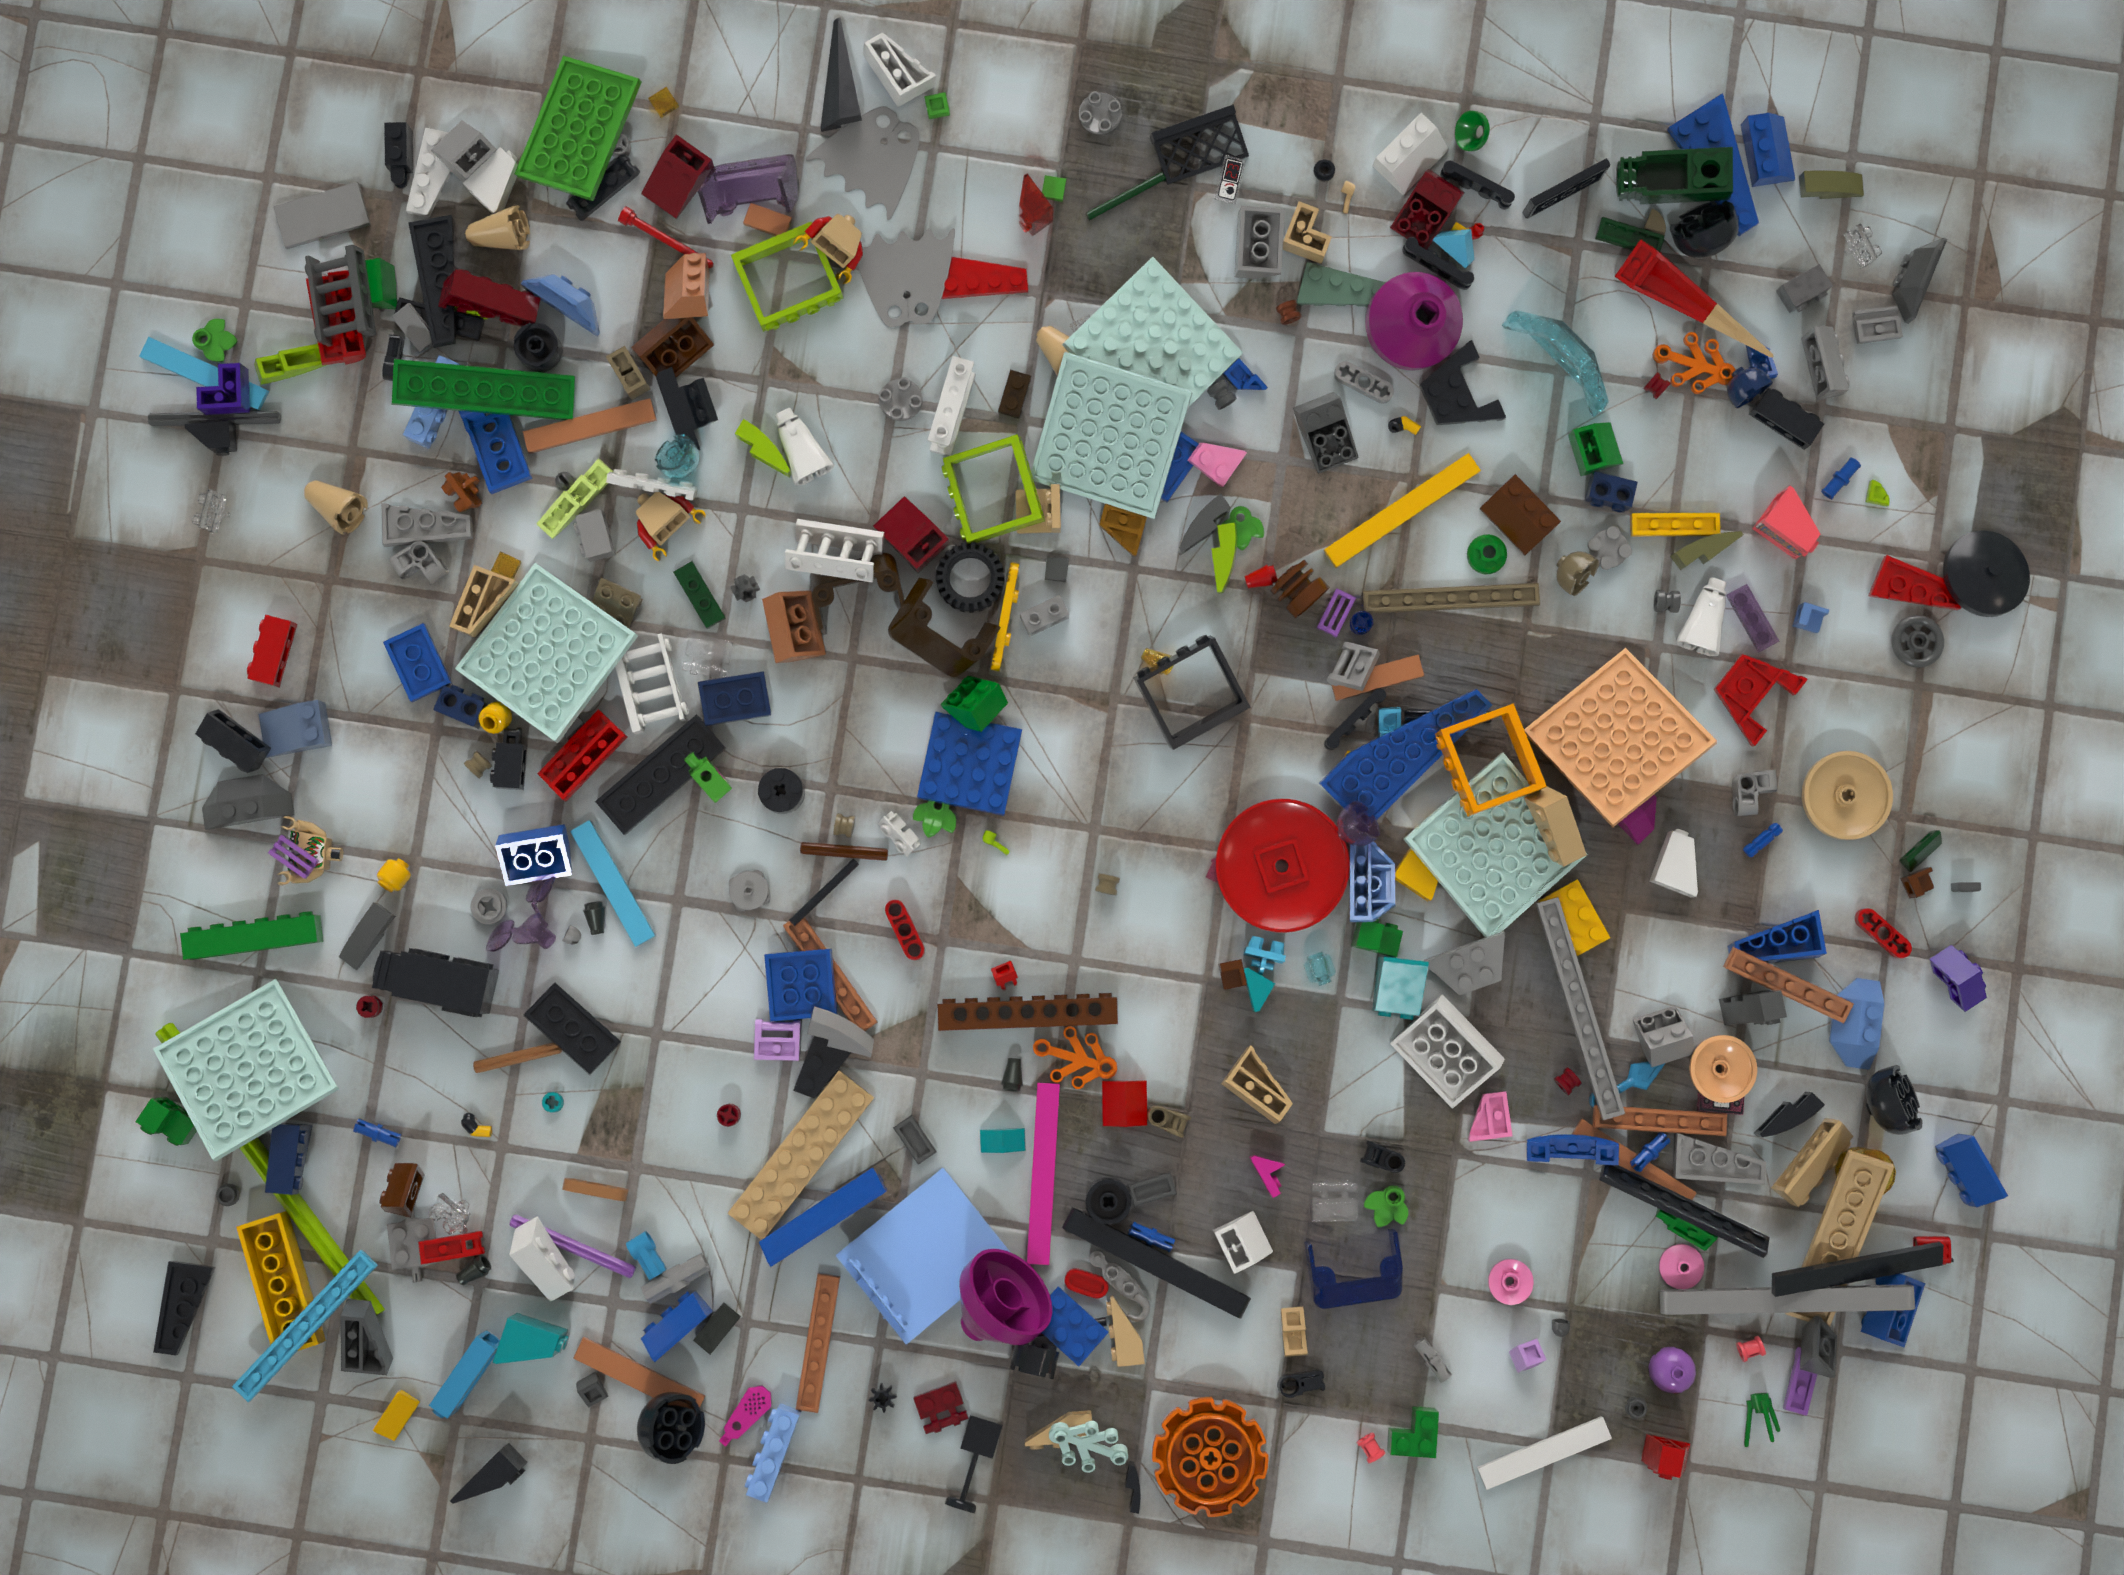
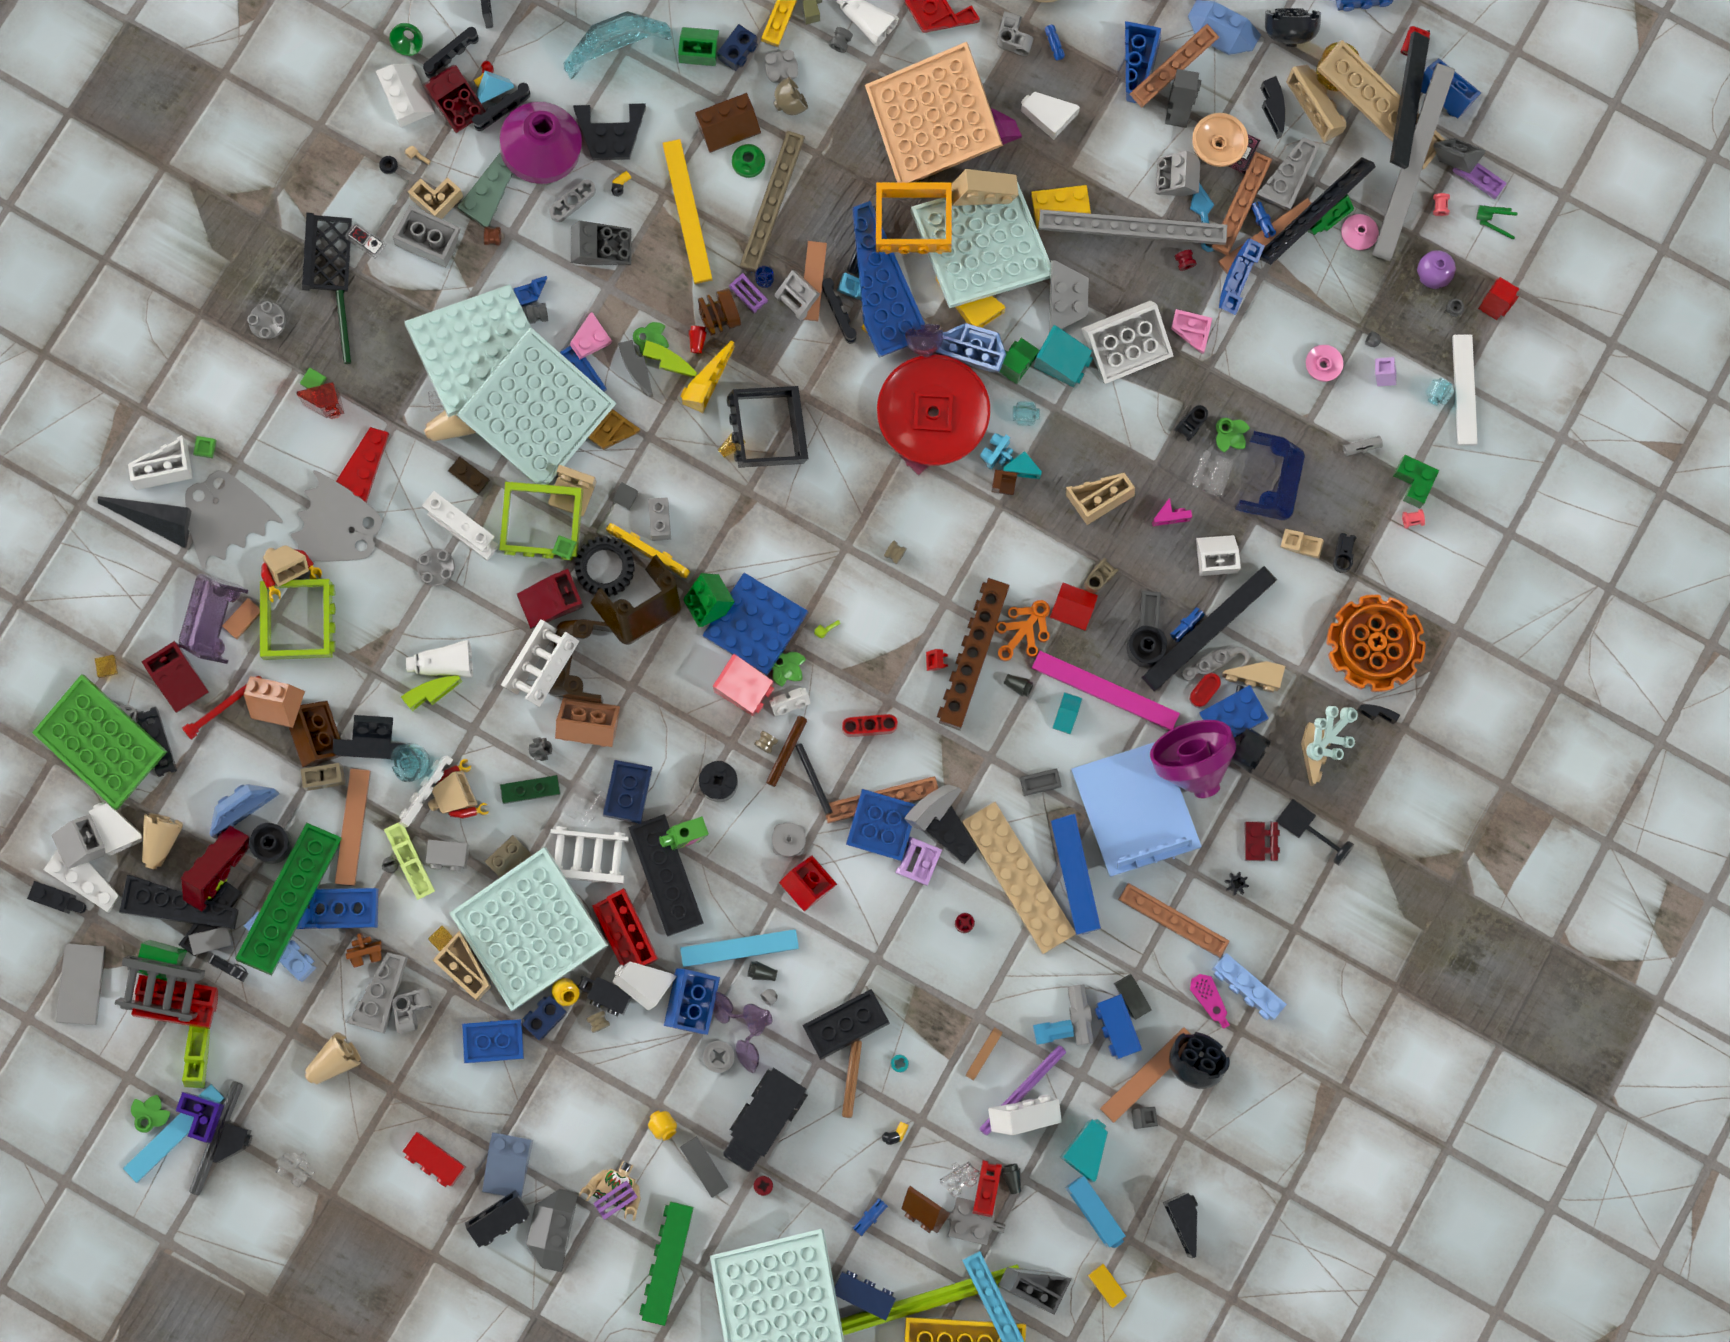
camera: 70 degrees left, 5 degrees down
(532, 796) = (643, 983): none -> white slope
(708, 929) = (807, 883): none -> red slope
(895, 777) = (743, 685): none -> coral slope
(971, 526) = (564, 547): none -> bright green tile
(1207, 603) = (703, 385): none -> yellow wedge
(1529, 1425) = (1439, 391): none -> clear light blue head

